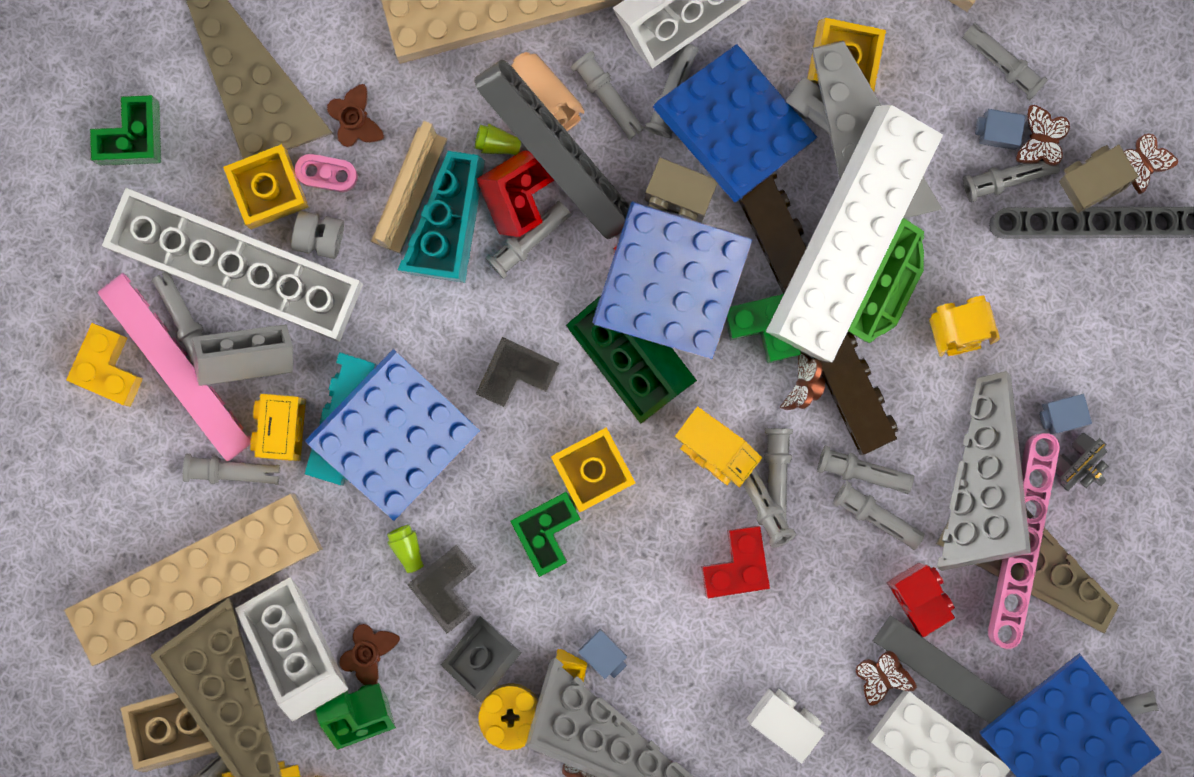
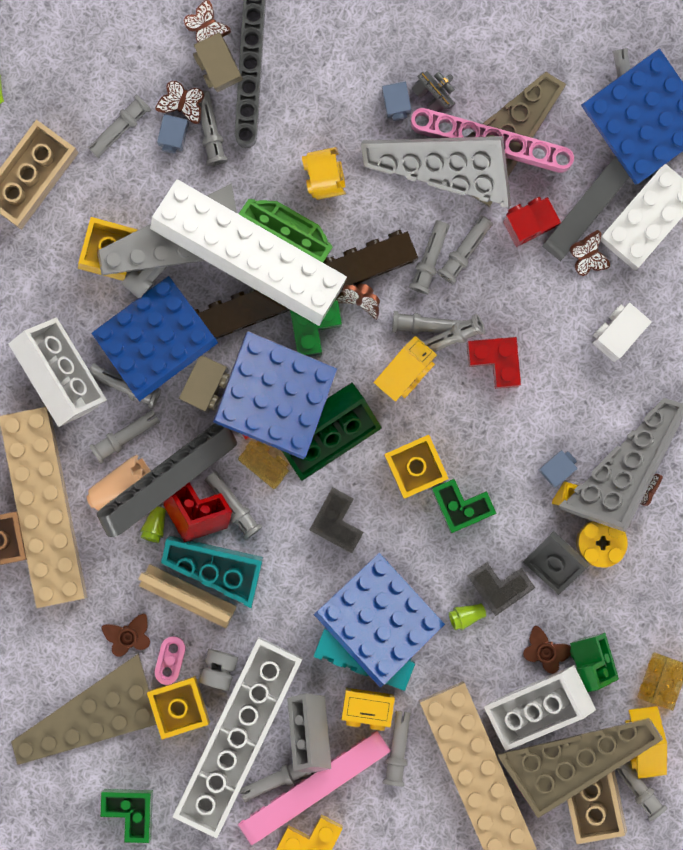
camera: 85 degrees left, 0 degrees up
(583, 273) = (262, 464): none -> clear yellow bracket

